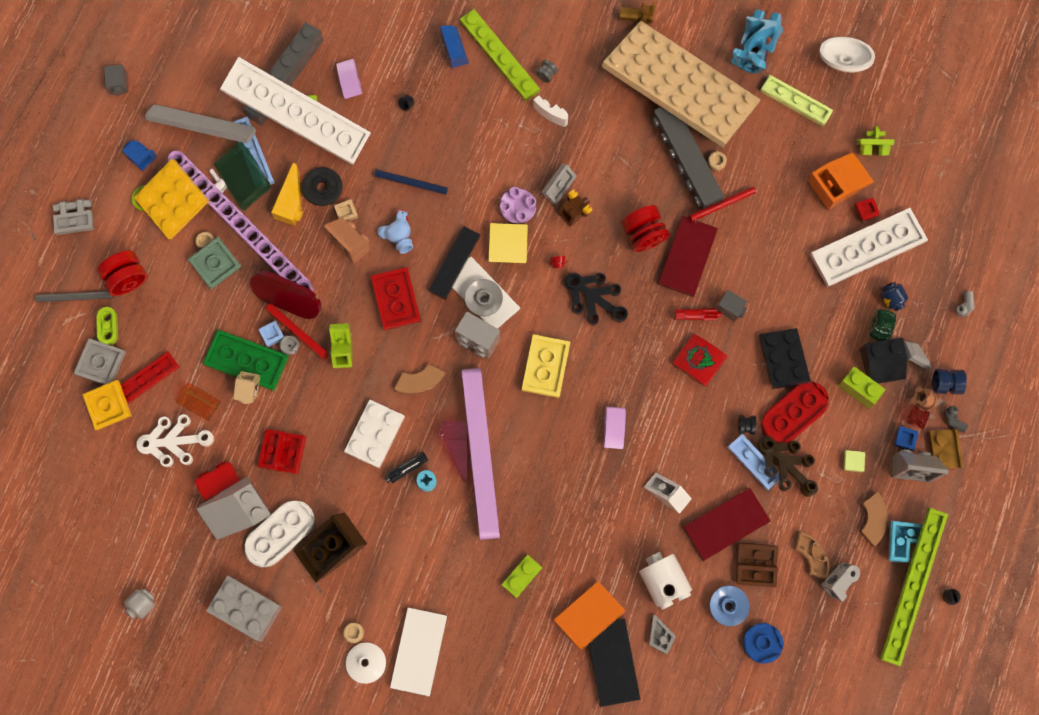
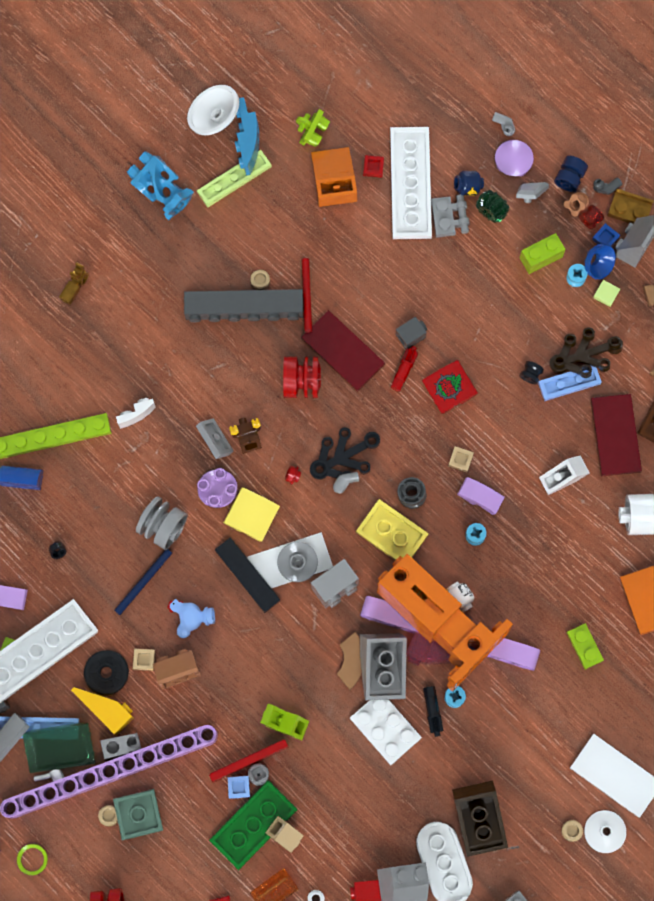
camera: 60 degrees left, 0 degrees up
(171, 199) = (50, 831): yellow plate -> none
(264, 223) = (120, 746): none -> light grey leg
(281, 451) = (363, 827): red slope -> none
(285, 294) = (207, 755): dark red tile -> none
(395, 298) = (258, 648): red plate -> none
(425, 407) = (383, 666): none -> light grey slope
(465, 171) = (158, 521): none -> light grey wheel
(484, 435) = (439, 617): none -> orange brick
(515, 447) = (462, 594): none -> white head
(546, 71) = (91, 398): dark grey wheel -> none
(572, 305) = (343, 481): none -> light grey arm
(580, 439) = (473, 537): none -> medium azure wheel
(593, 360) = (412, 484): none -> dark grey wheel
(639, 397) = (460, 459): none -> tan tile
(681, 83) = (168, 276): tan plate -> none
(784, 358) = (483, 309): black plate -> none
(795, 412) = (537, 324): red tile -> none
(837, 94) = (248, 137): none -> dark azure slope
(852, 289) = (443, 216): none -> light grey plate
(853, 428) = (575, 279): none -> medium azure wheel
(880, 446) = (603, 263): none -> blue piece
(885, 360) = (526, 220): black slope -> none
(938, 326) = (514, 158): none -> lavender dish

